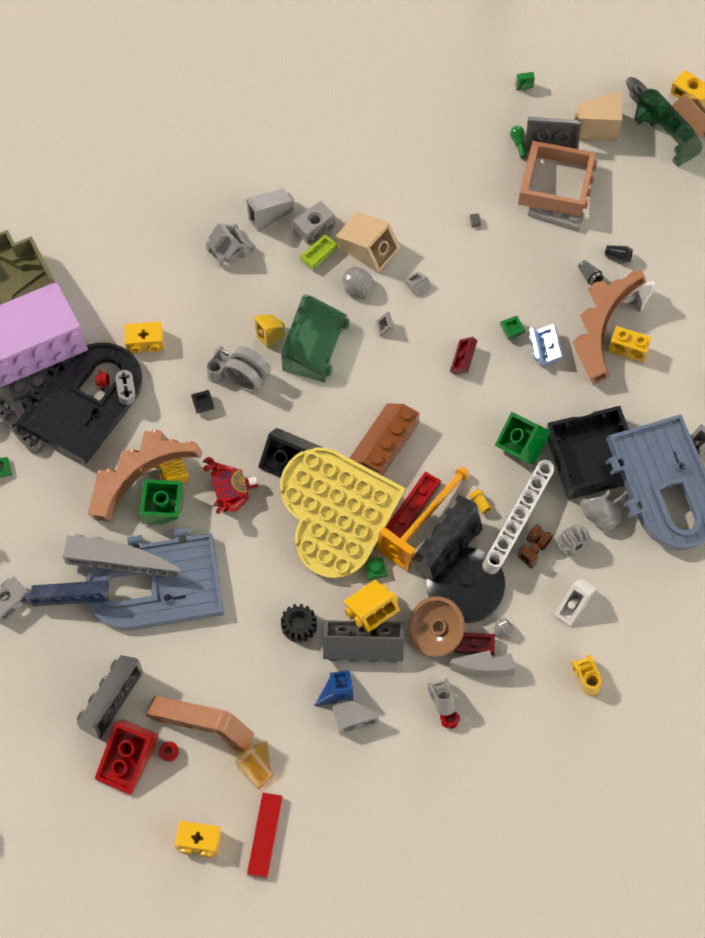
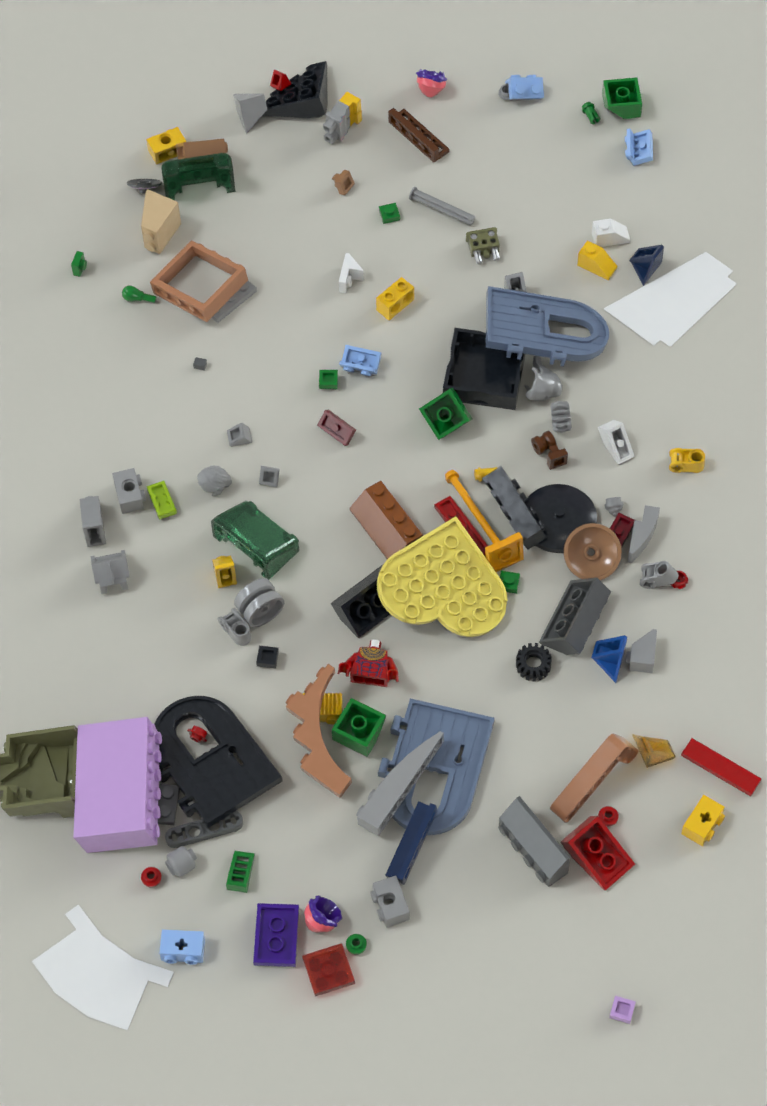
camera: 65 degrees left, 5 degrees down
(125, 387) = (221, 713): light grey beam -> none
(137, 332) = (171, 680): yellow brick -> none
(368, 241) = (174, 454): tan slope -> none
(371, 605) = (549, 593): yellow brick -> none
(514, 523) = (519, 448): white beam -> none
(553, 131) = (151, 262): dark grey tile -> none
(590, 272) = (307, 298): dark grey cone -> none
(606, 299) = (384, 328): nougat arch -> none
(619, 253) = (299, 268): black cone -> none

